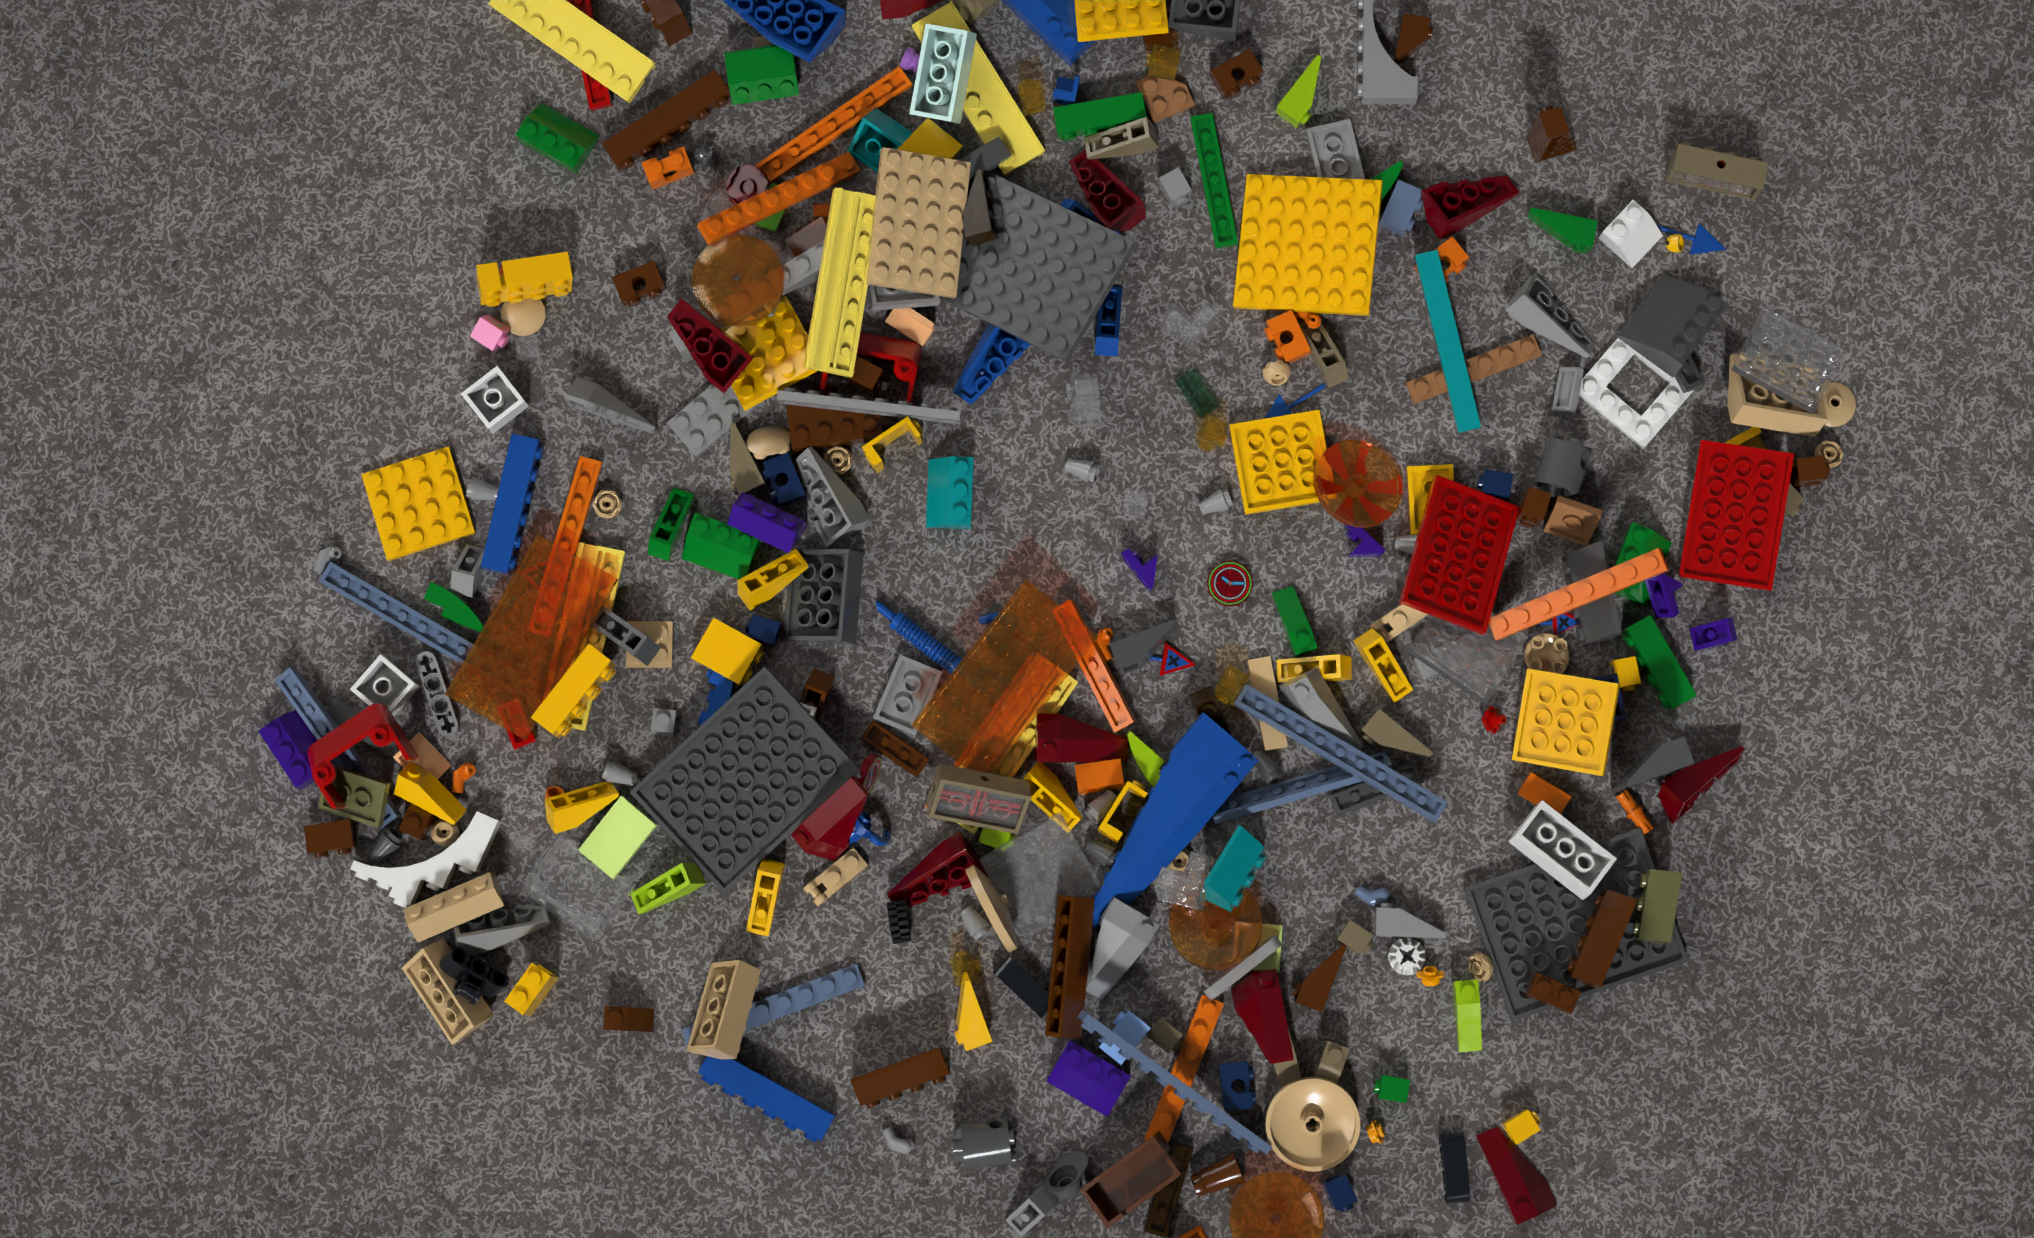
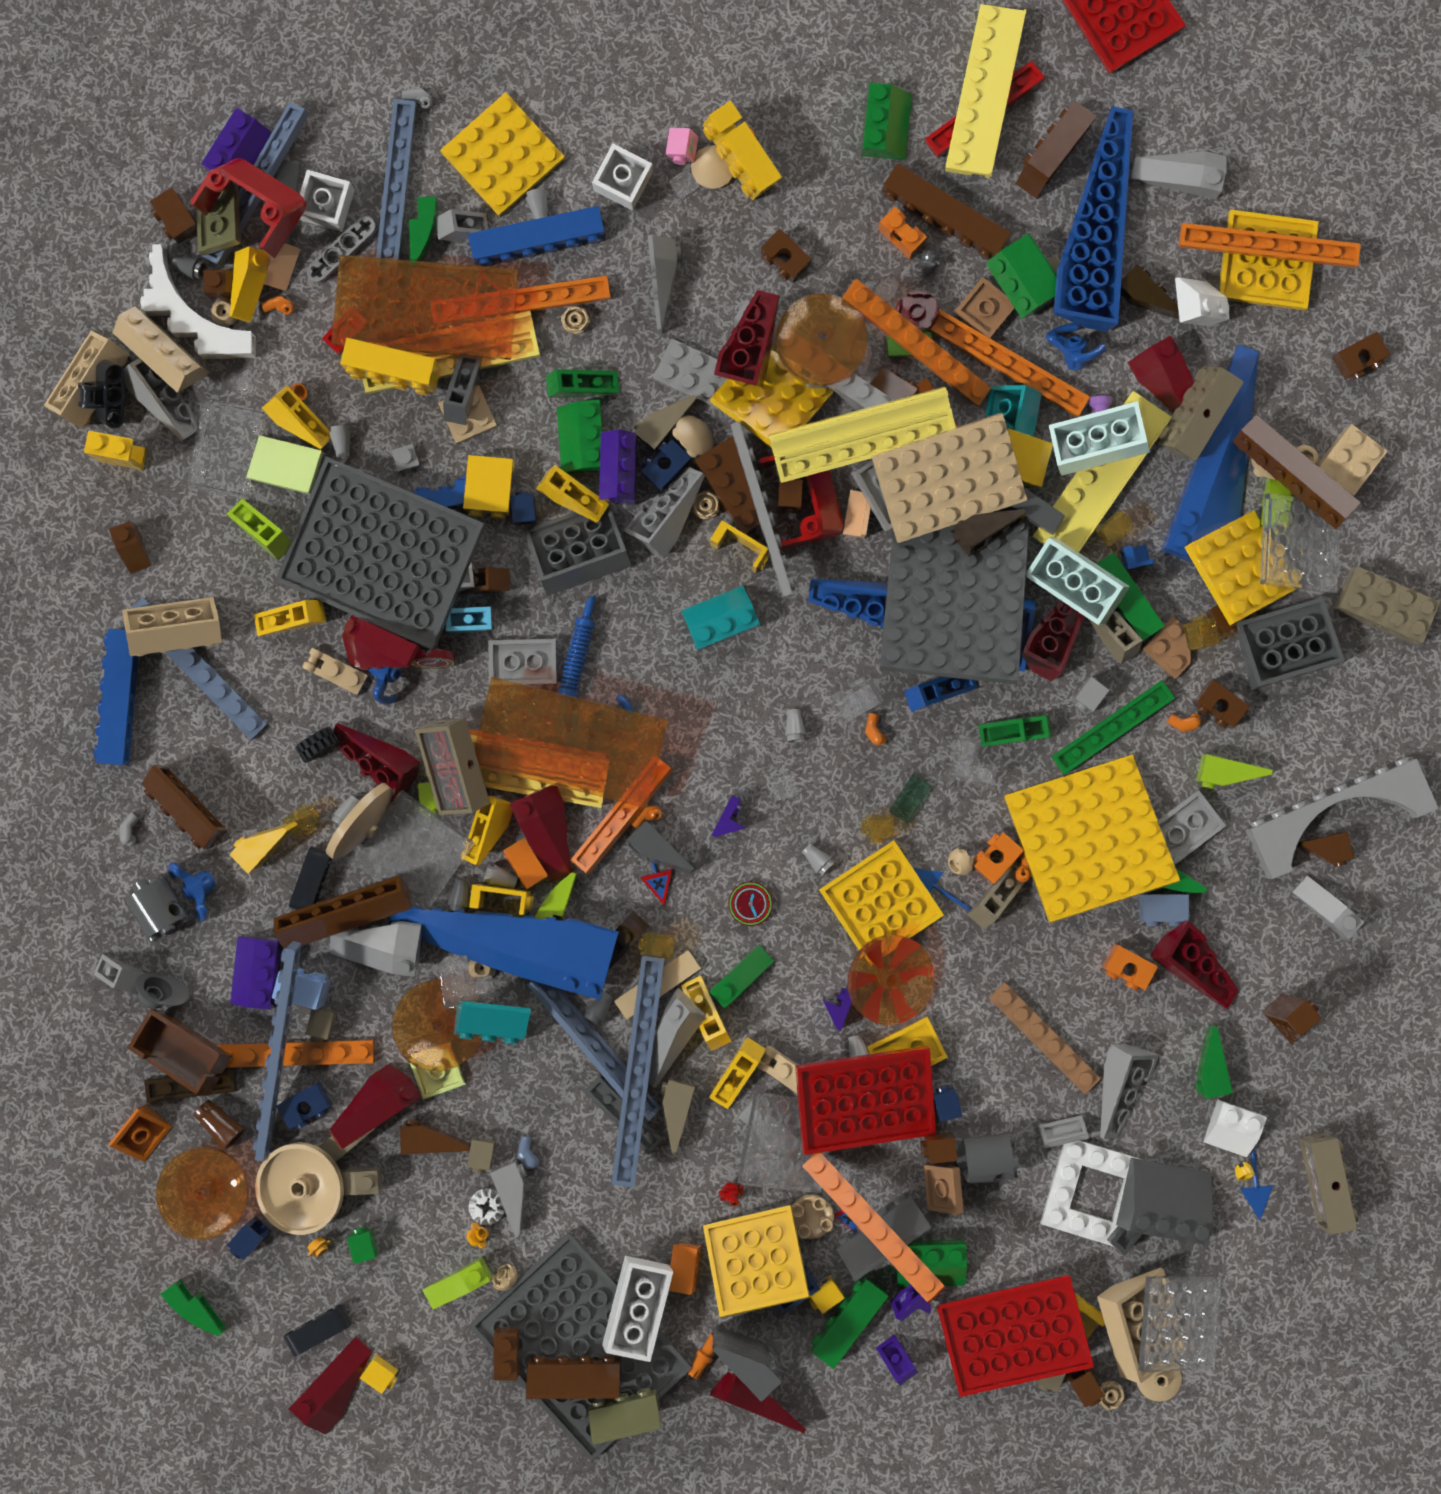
camera: 65 degrees right, 5 degrees up
(772, 124) = (985, 308): none -> medium nougat plate
(847, 60) = (1074, 348): none -> blue piece
(847, 724) = (469, 620): none -> medium azure slope
(895, 748) = (471, 672): reddish brown tile -> none
(982, 1100) = (194, 887): none -> blue piece
(1065, 151) = (1077, 581): none -> light aqua brick
(1119, 400) = (873, 731): none -> orange arm
(1177, 269) = (1015, 731): none -> green slope
(1235, 973) = (393, 1057): light grey beam -> none
(1241, 114) = (1185, 725): none -> orange arm
(1447, 341) = (1058, 1004): teal tile -> none
(1466, 61) = (1328, 908): none -> light grey slope

